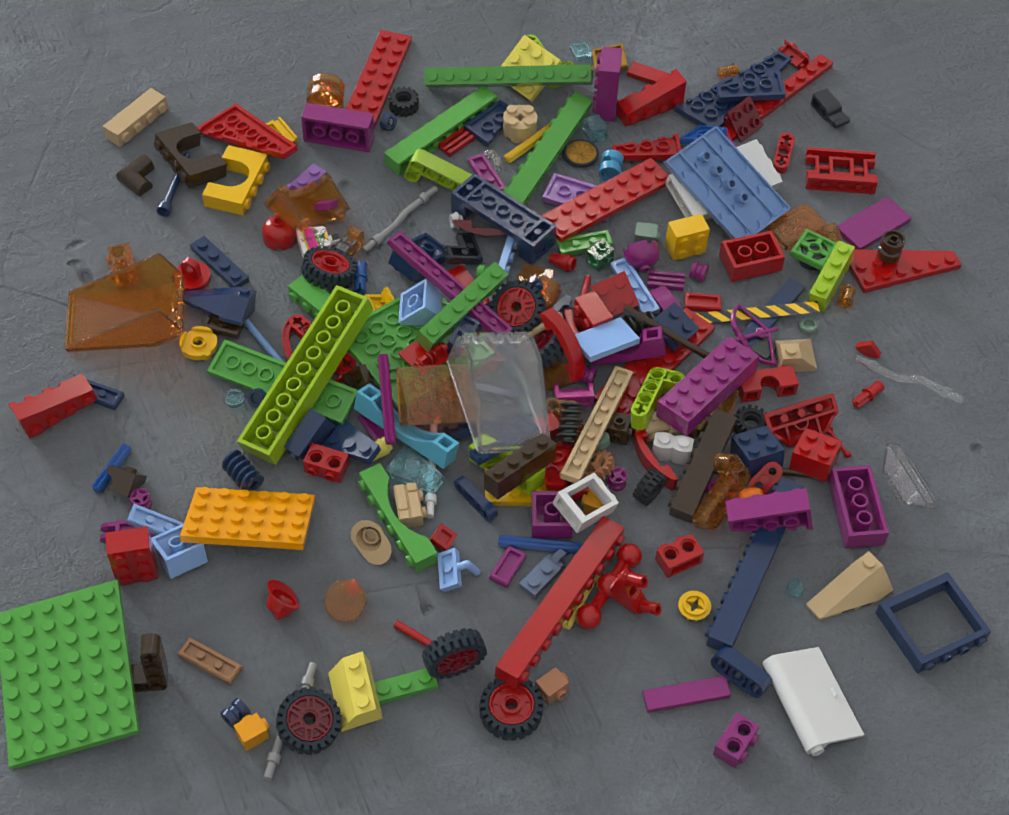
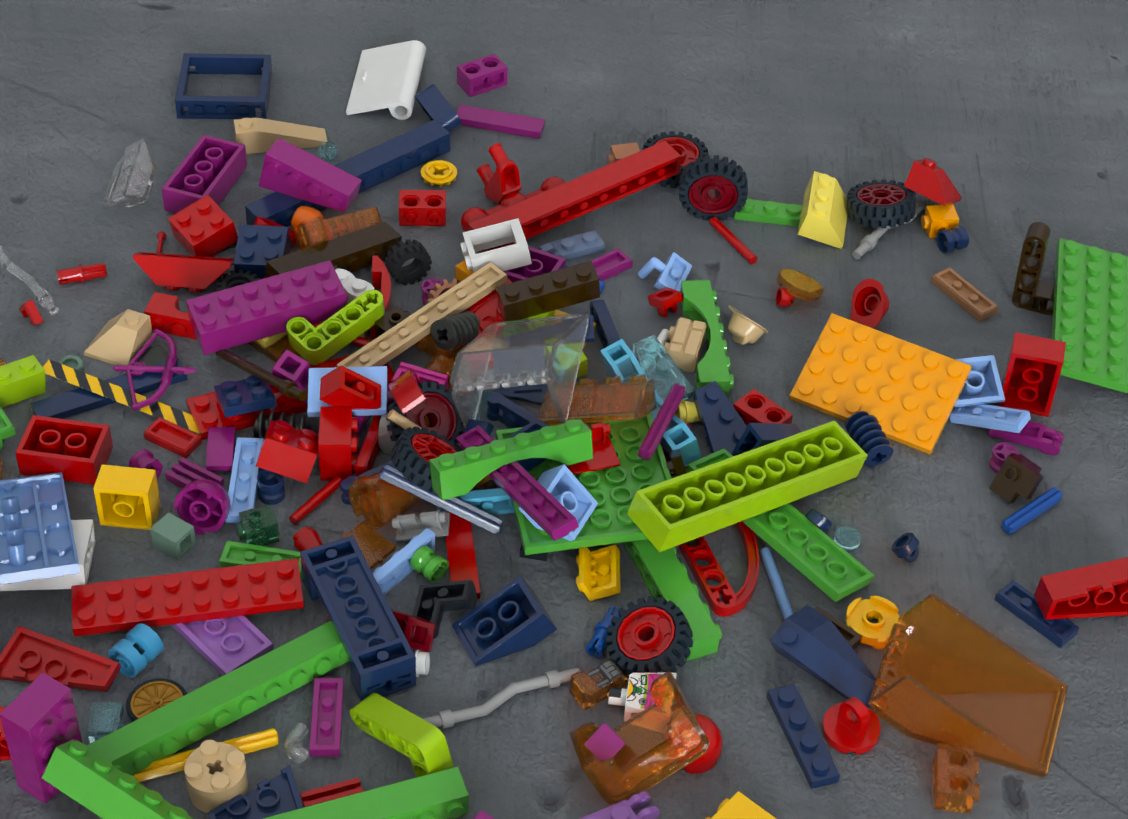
camera: 155 degrees left, 10 degrees down
(192, 401) = (905, 546): none -> dark blue tile
(265, 748) = (932, 182): none -> red slope
(598, 325) = (349, 388): none -> red slope

